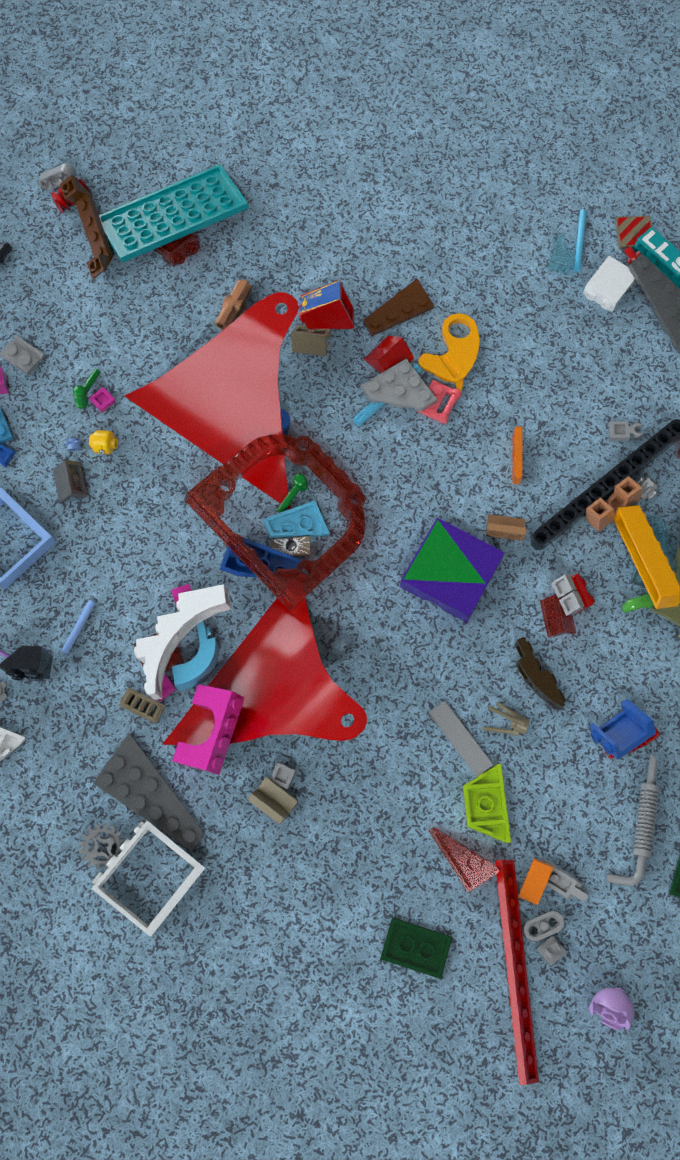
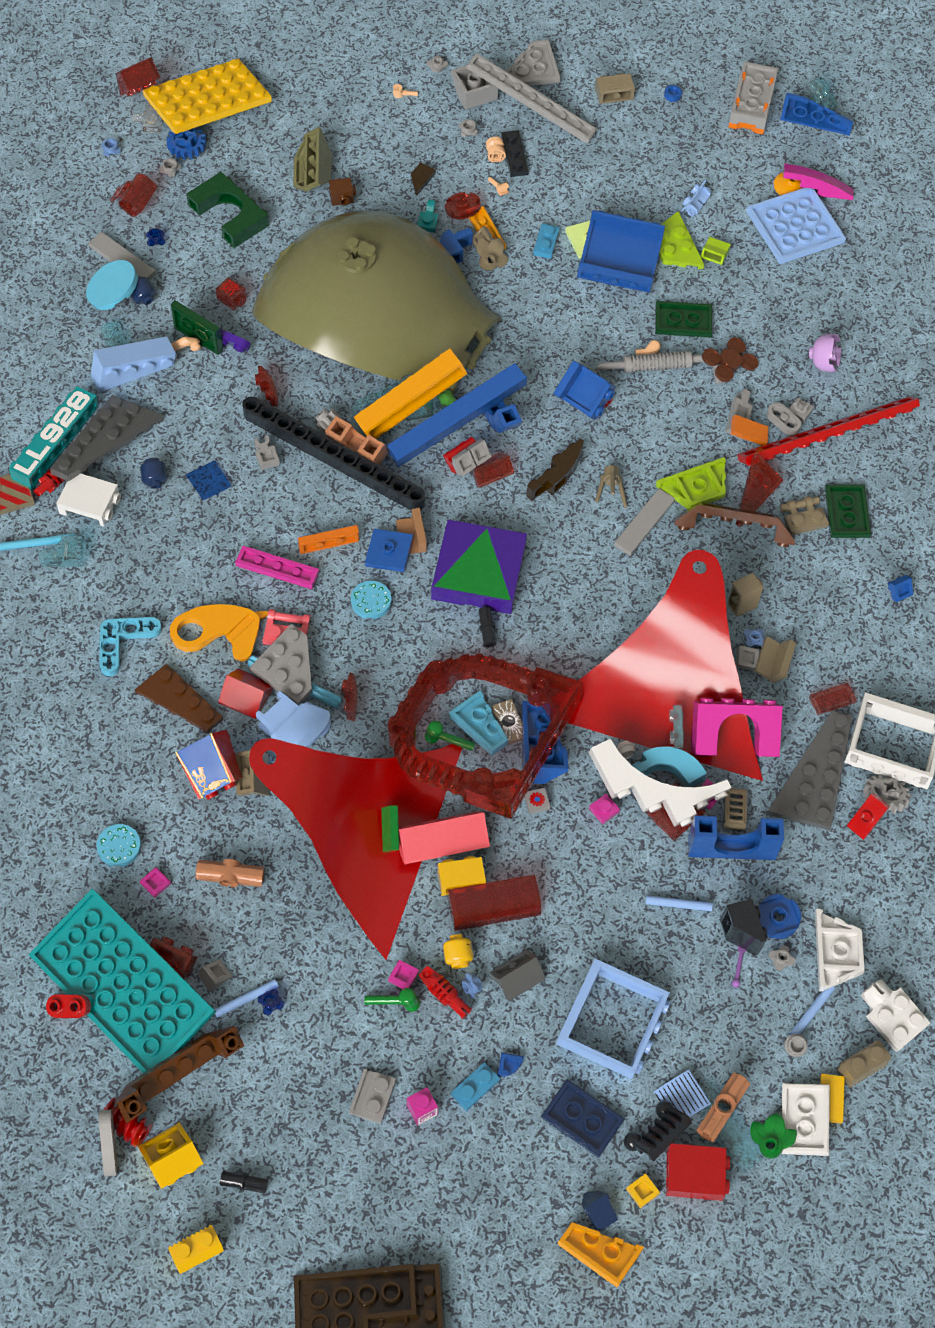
camera: 110 degrees left, 10 degrees down
(25, 696) = (784, 906): none -> blue plate
(36, 216) = (170, 1155): none -> yellow slope
(77, 424) = (444, 991): none -> red hinge
(85, 817) = (868, 816): none -> red plate
(116, 662) = (758, 845): none -> blue arch
(121, 303) = (266, 997): none -> clear blue plate
(132, 293) = (231, 1005): none -> light blue bar
(134, 482) = (494, 902): none -> clear red brick
(159, 278) = (214, 975): none -> light grey slope
(163, 462) = (460, 873): none -> yellow brick
(170, 178) = (66, 1006): none -> red plate
(203, 451) = (443, 837): none -> coral brick
(211, 546) = (537, 801): none -> light grey tile
(217, 841) = (832, 698): none -> clear red tile
(220, 417) = (390, 828): none -> green tile
(227, 675) = (677, 716): none -> clear light blue plate
(230, 633) = (626, 749): none -> white plate
(247, 257) = (155, 882): none -> dark pink tile
(287, 240) = (118, 845): none -> medium azure tile
(303, 787) = (750, 641): none -> medium blue plate
(308, 960) = (901, 588): none -> blue tile
(338, 375) = (294, 723): none -> light blue piece
(345, 795) = (745, 594): none -> dark tan brick
(361, 432) = (349, 688): none -> clear red slope
(390, 559) = (487, 627): none -> black axle
(405, 865) = (688, 518): none -> reddish brown slope
(416, 899) = (804, 521): none -> dark tan plate
(448, 475) = (371, 599): none -> medium azure tile
(474, 280) = (119, 632): none -> medium azure beam
(493, 502) = (389, 550): none -> blue plate
(501, 409) = (277, 567): none -> dark pink plate
(608, 381) = (208, 480): none -> clear blue piece
(620, 641) = (503, 417): none -> blue arch
(621, 599) = (456, 415): none -> blue tile
(624, 337) = (153, 473): none -> dark blue head
(630, 898) = (730, 359): none -> copper piece
(662, 819) = (651, 348): none -> light nougat arm

